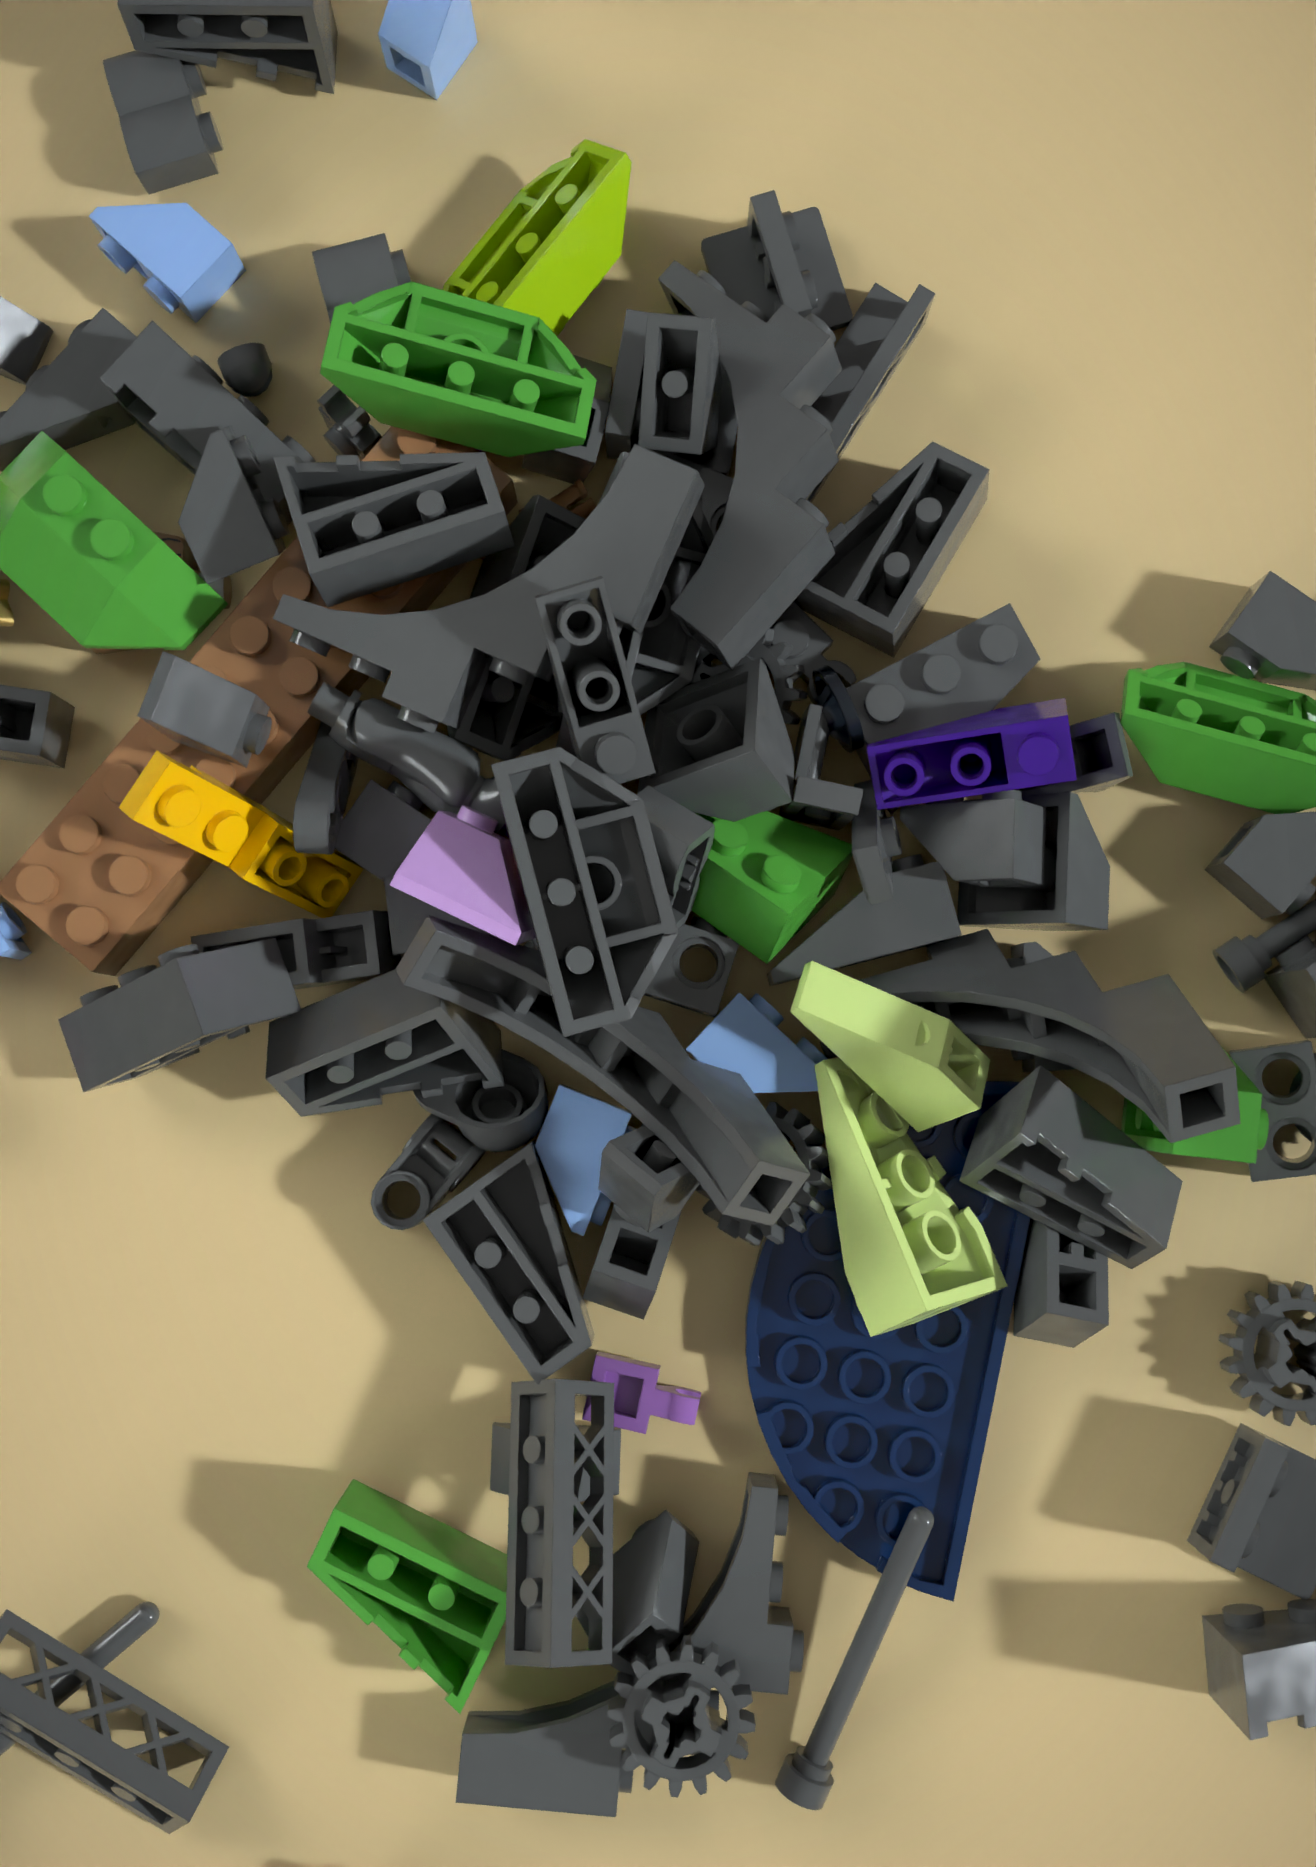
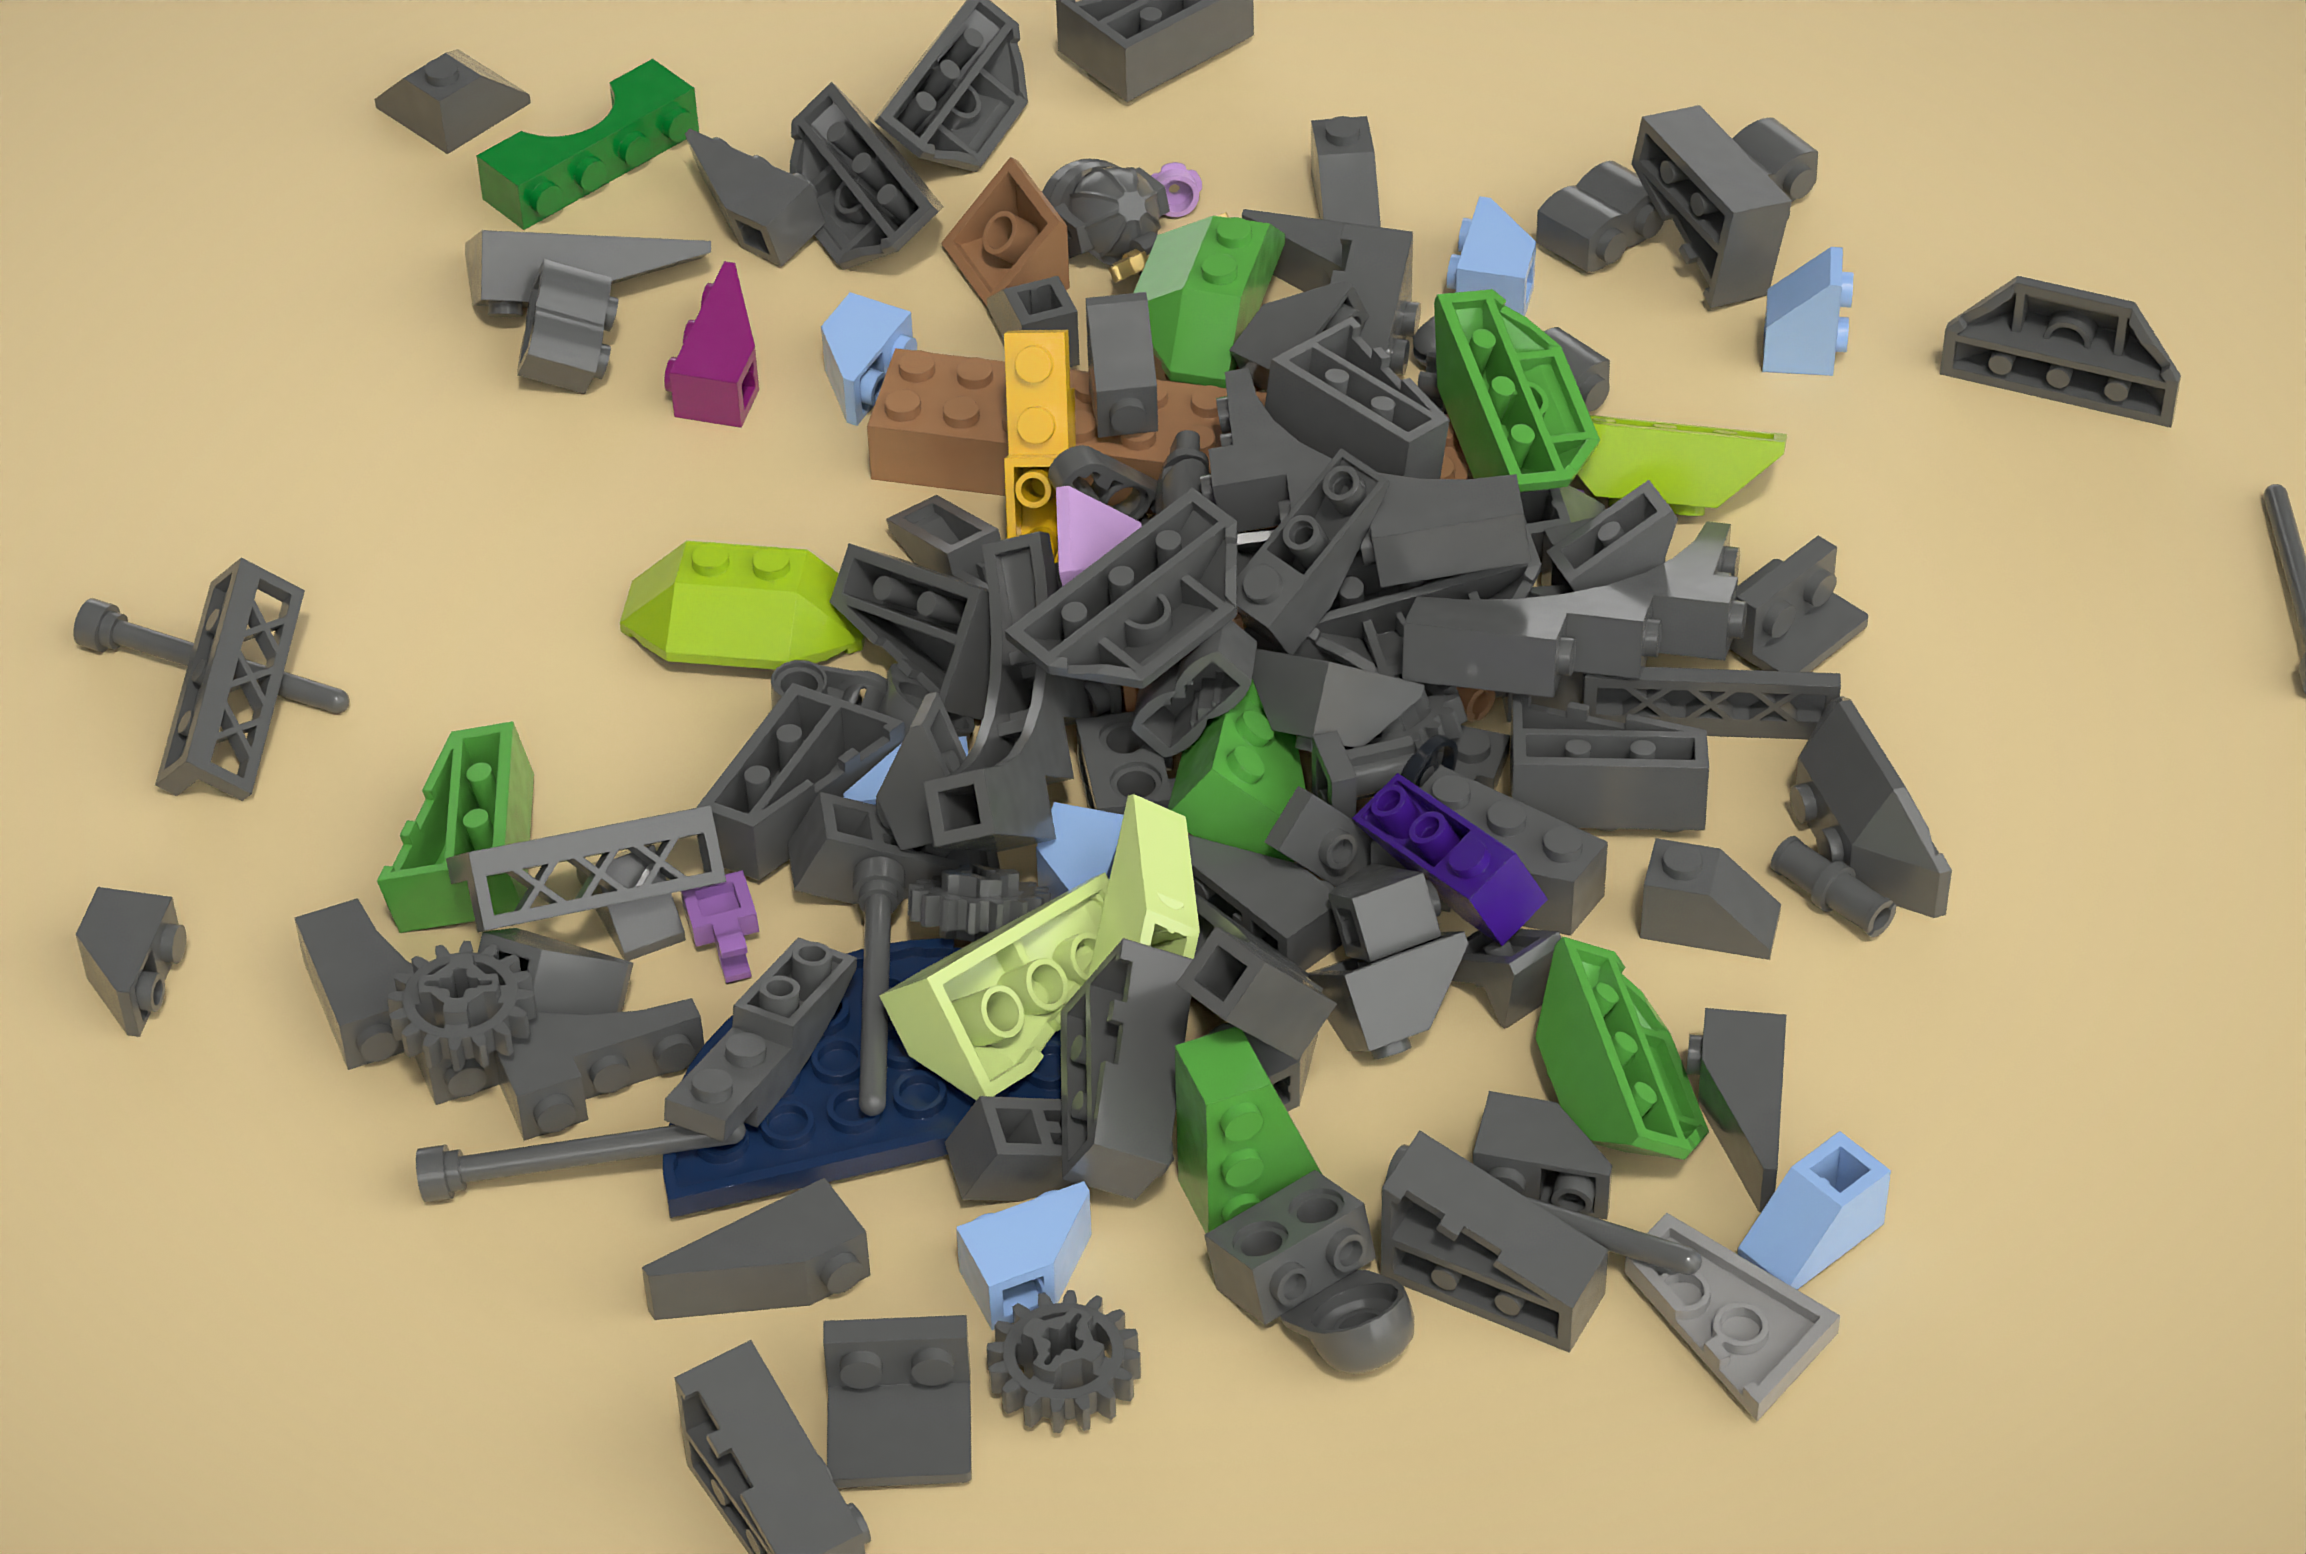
camera: 65 degrees right, 40 degrees down
(175, 1010) = (872, 485): dark grey wedge -> none
(251, 1204) = (738, 607): none -> lime wedge
(702, 1255) = (878, 891): none -> dark grey piece
(851, 1457) = (768, 1042): none -> dark grey slope
(1046, 358) = (1866, 813): none -> dark grey wedge
(1061, 1538) = (765, 1261): none -> dark grey slope
(1077, 553) = (1706, 902): none -> dark grey slope
(1112, 434) = (1833, 886): none -> dark grey pin
(1166, 1330) = (1024, 1251): none -> light blue slope

